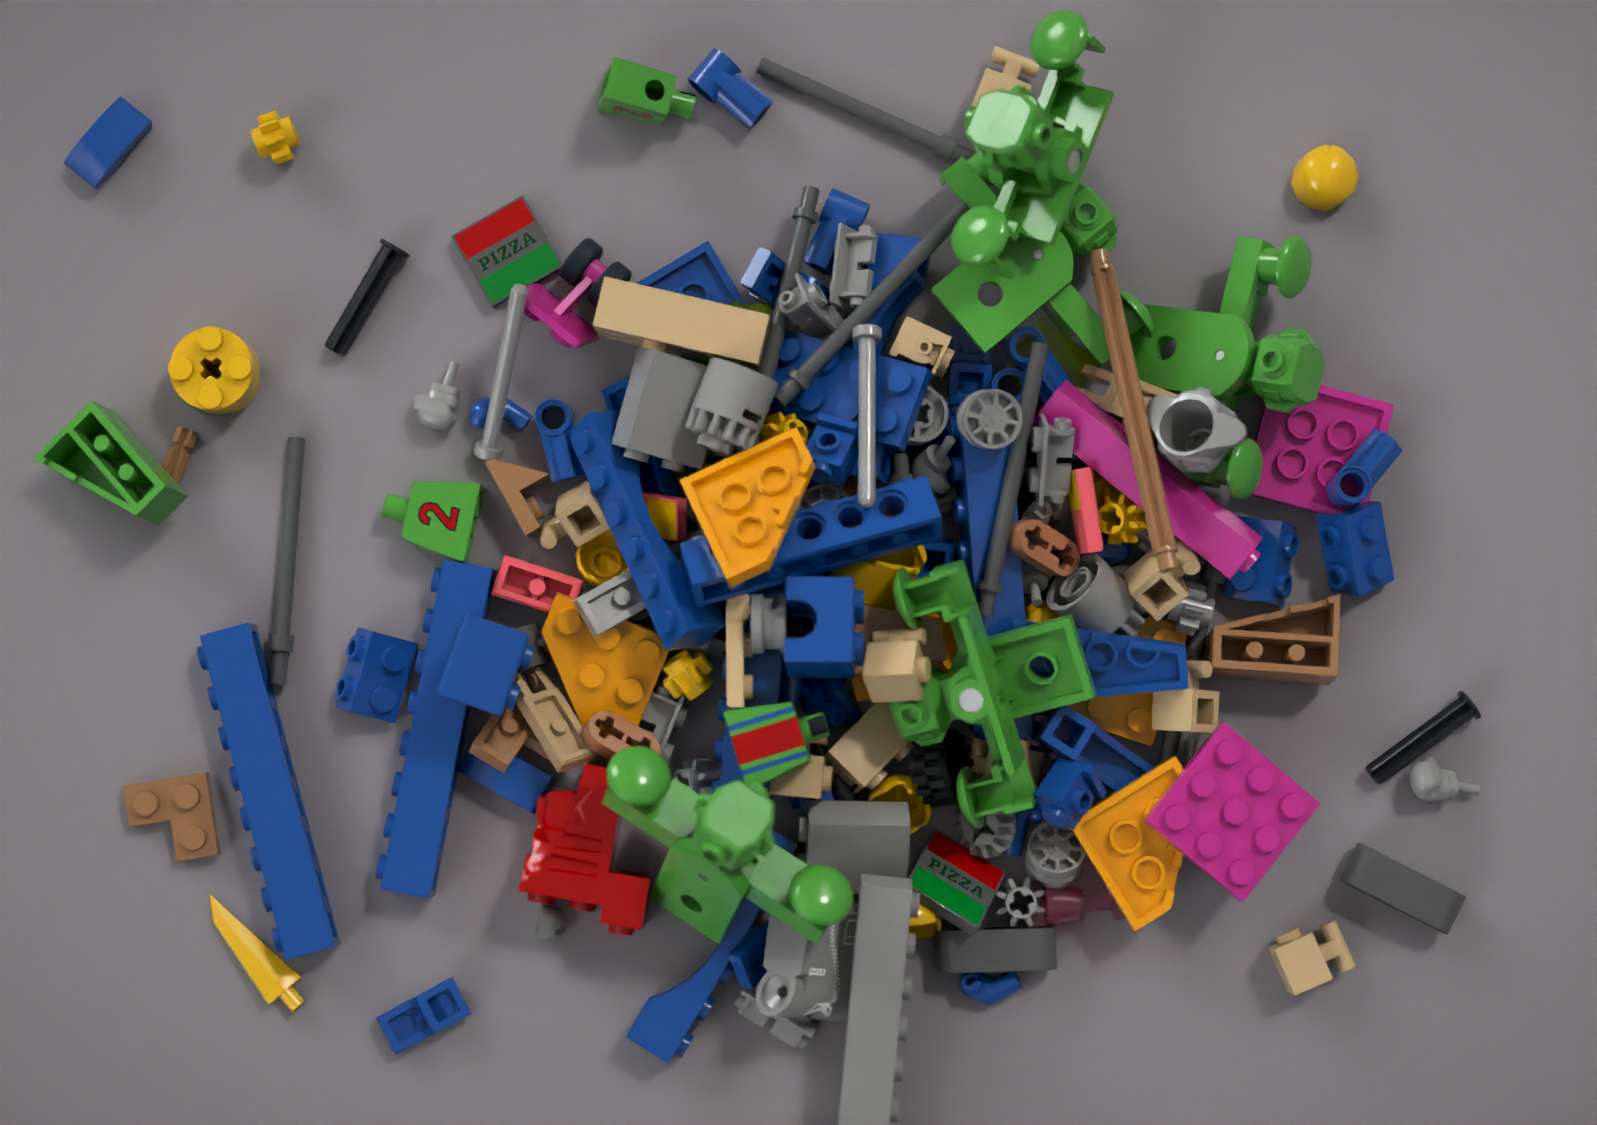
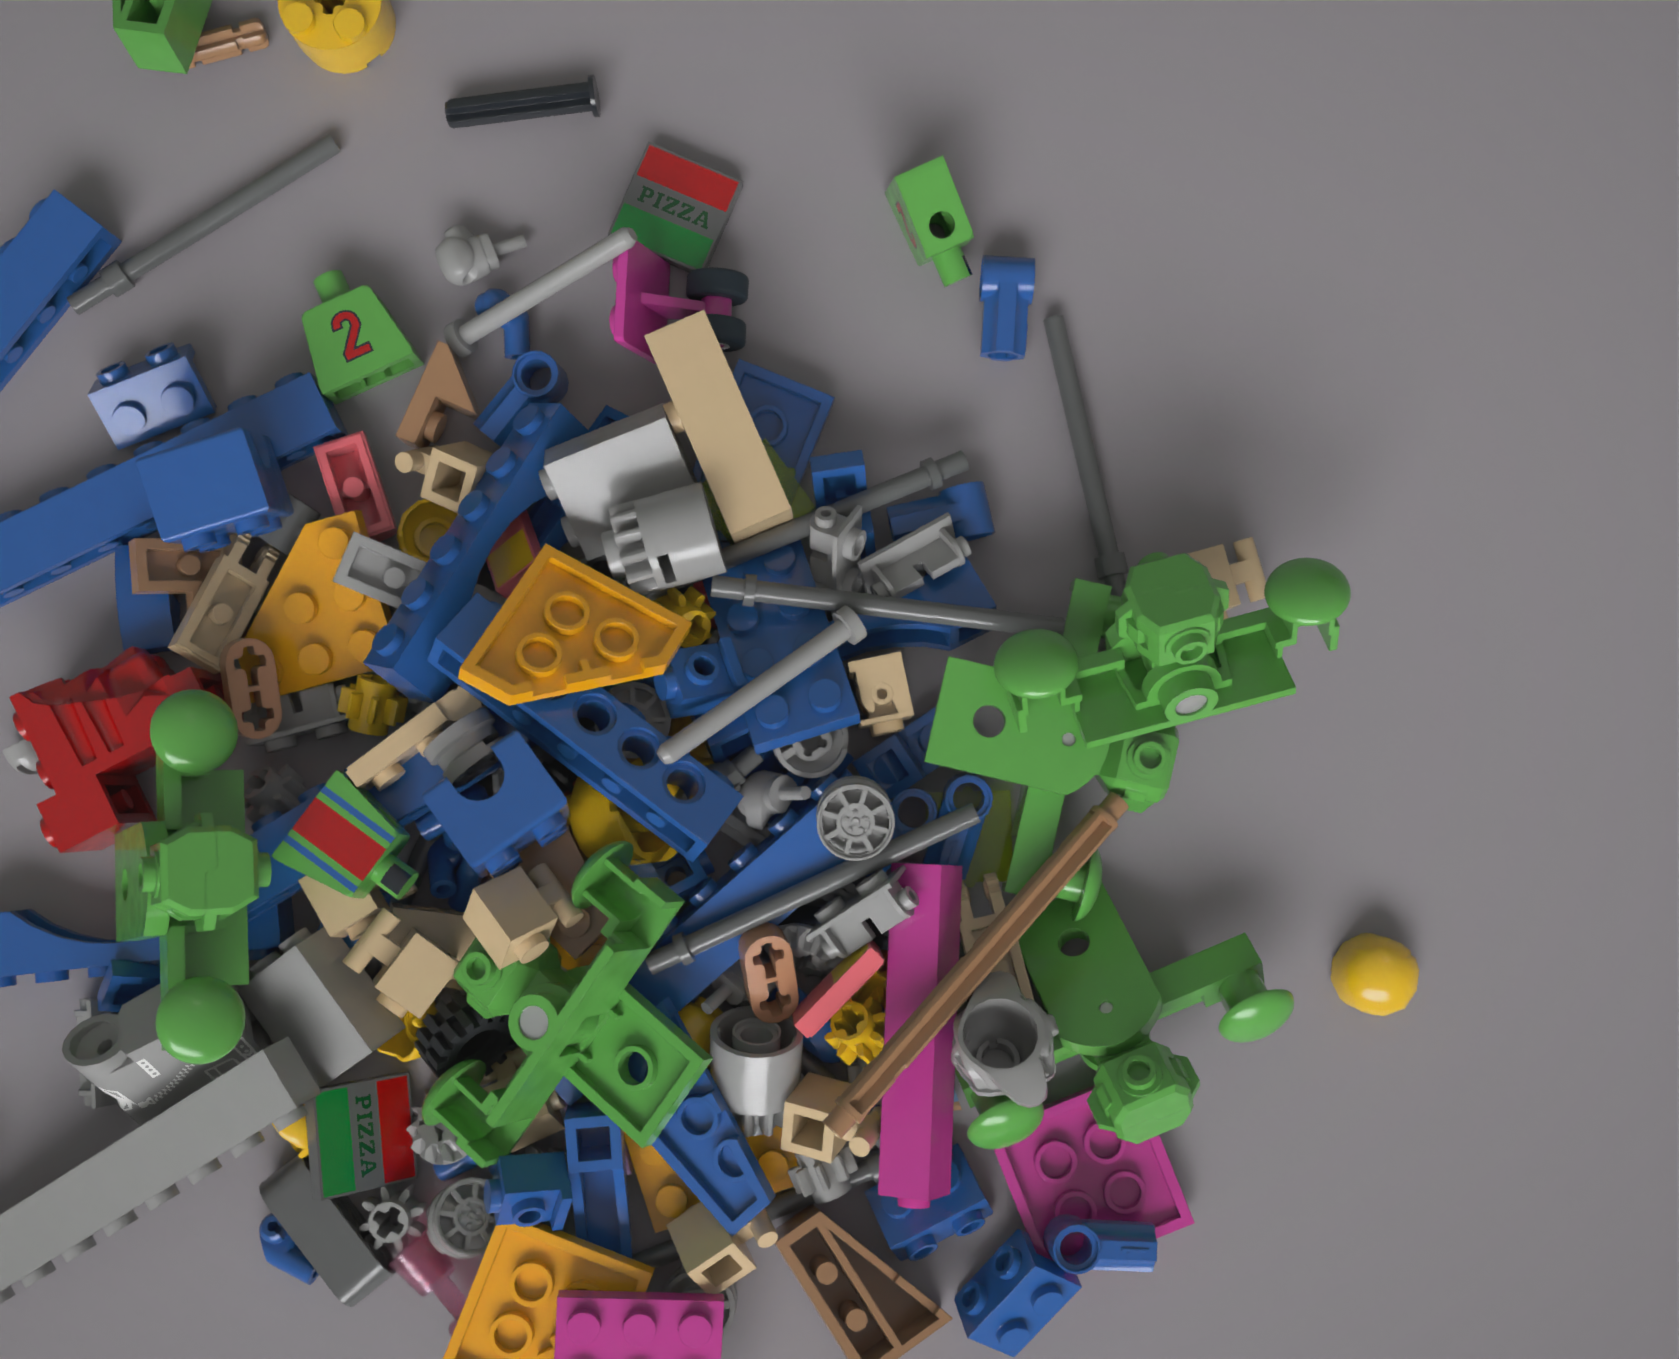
camera: 55 degrees right, 0 degrees up
(877, 763) = (411, 971): none -> tan brick

